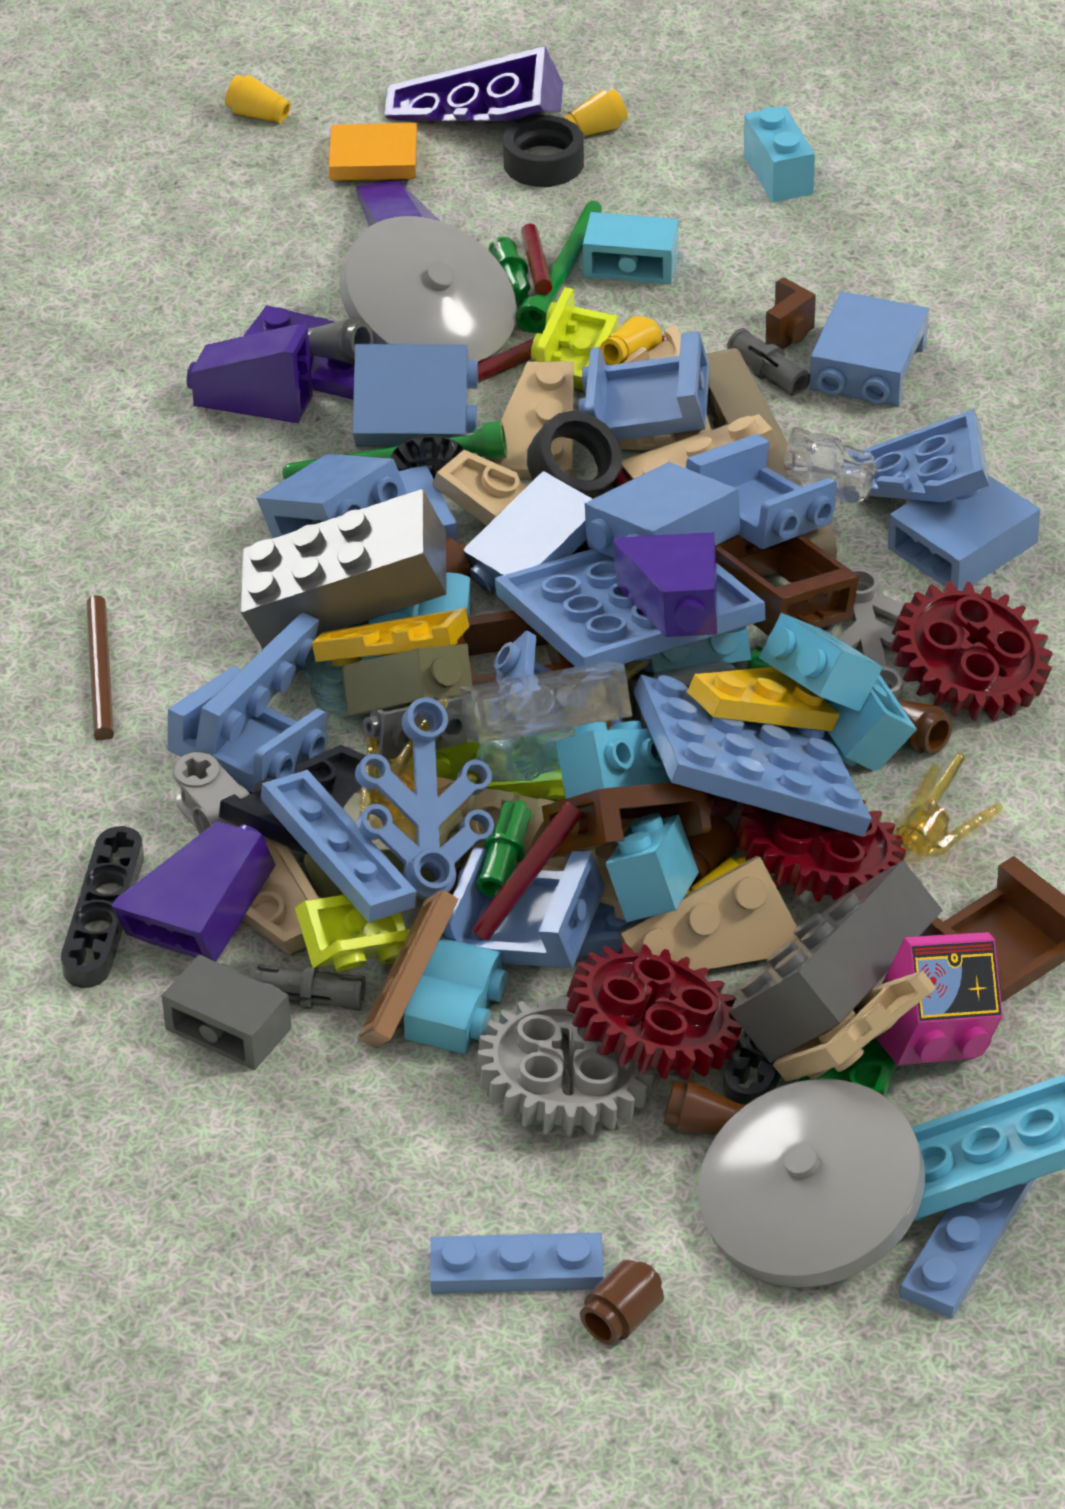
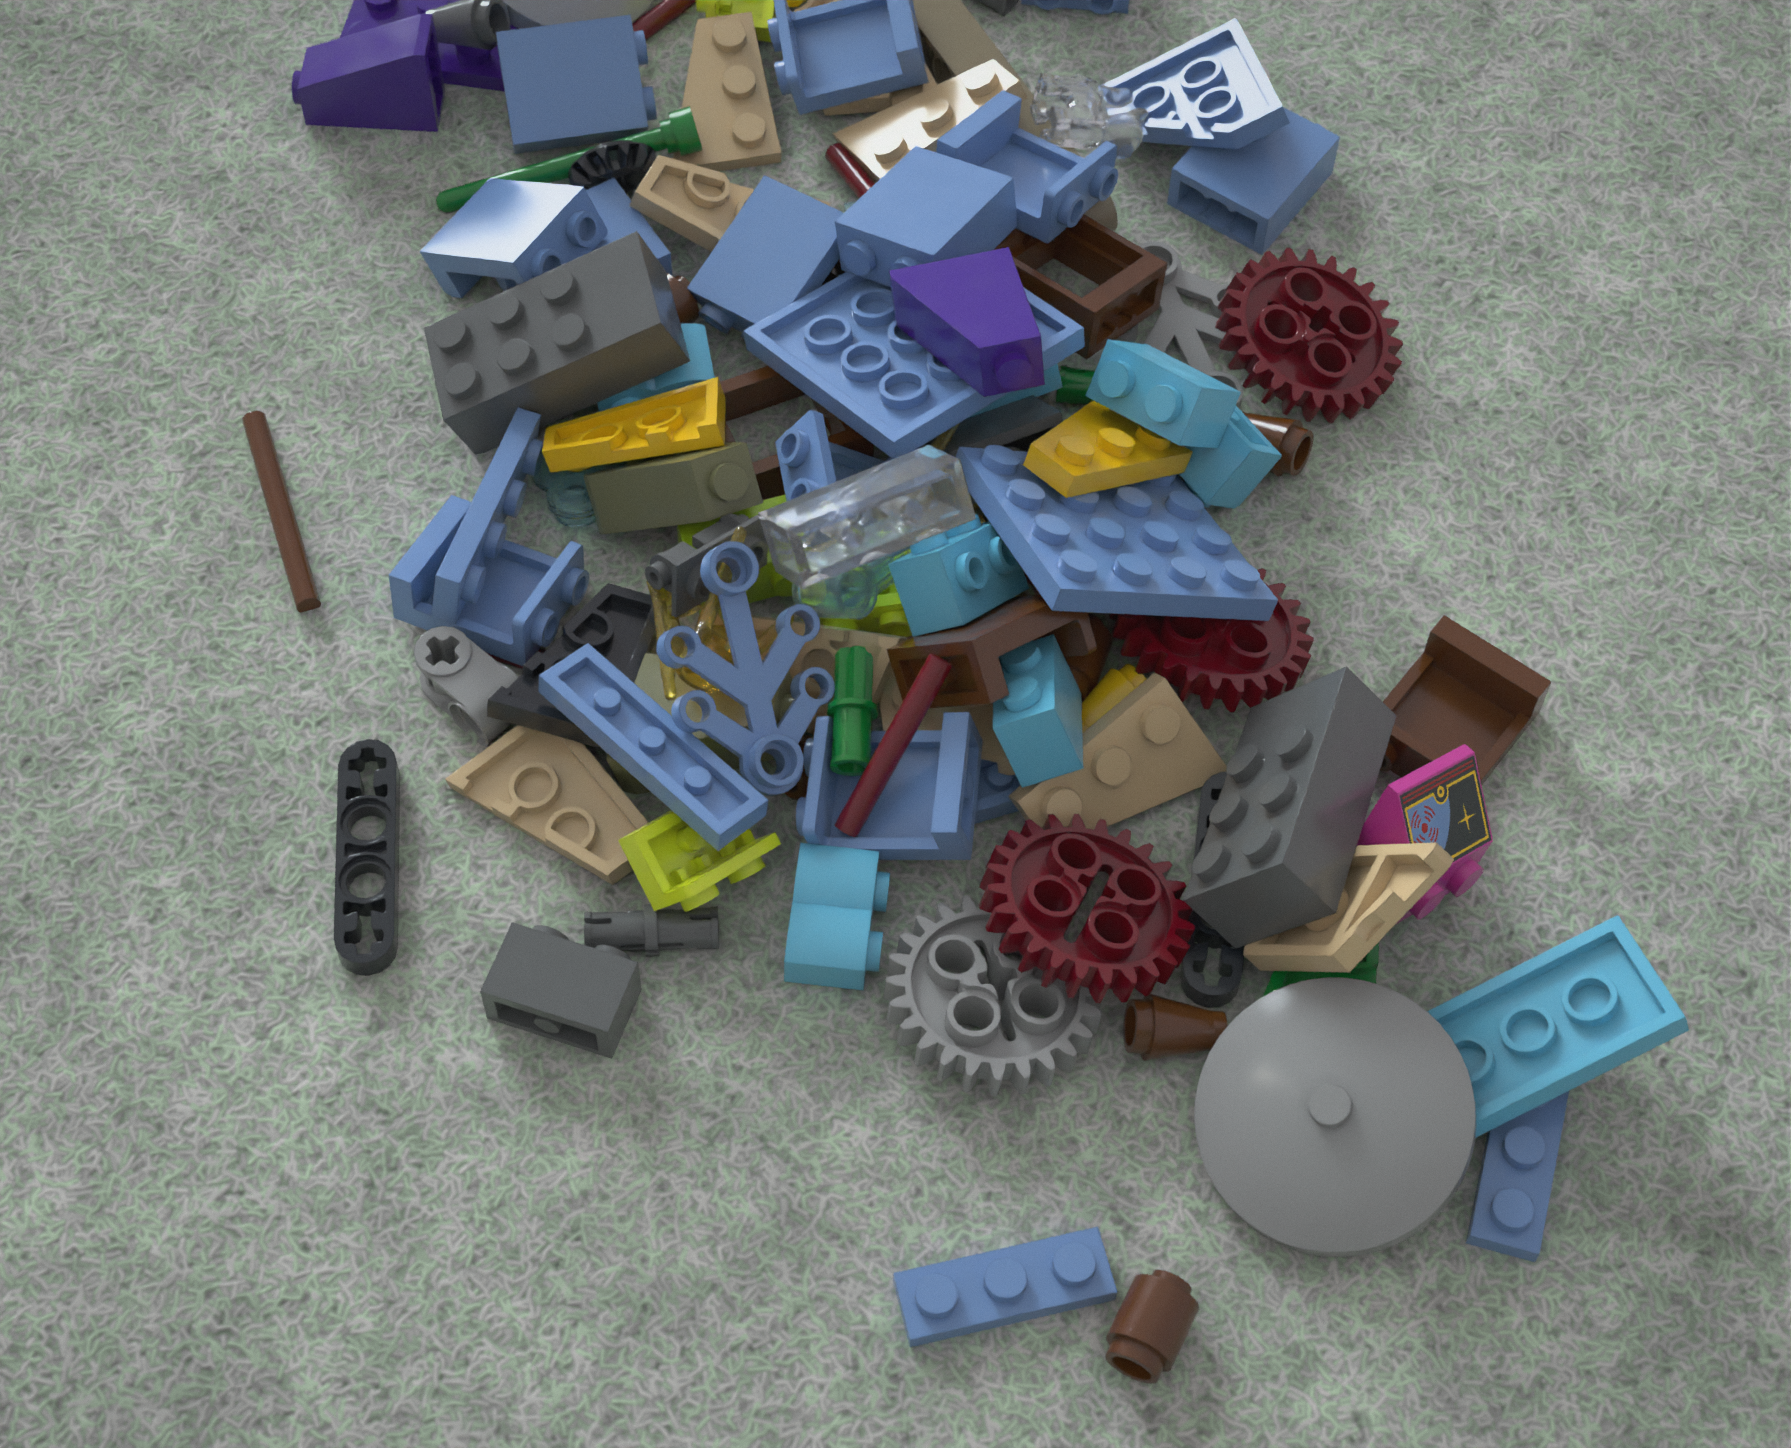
camera: 15 degrees left, 15 degrees up
(199, 892) = (488, 827): dark purple slope -> none
(408, 969) = (776, 899): medium nougat tile -> none
(587, 431) = (807, 115): black tyre -> none
(927, 823) = (1322, 580): clear yellow plant -> none

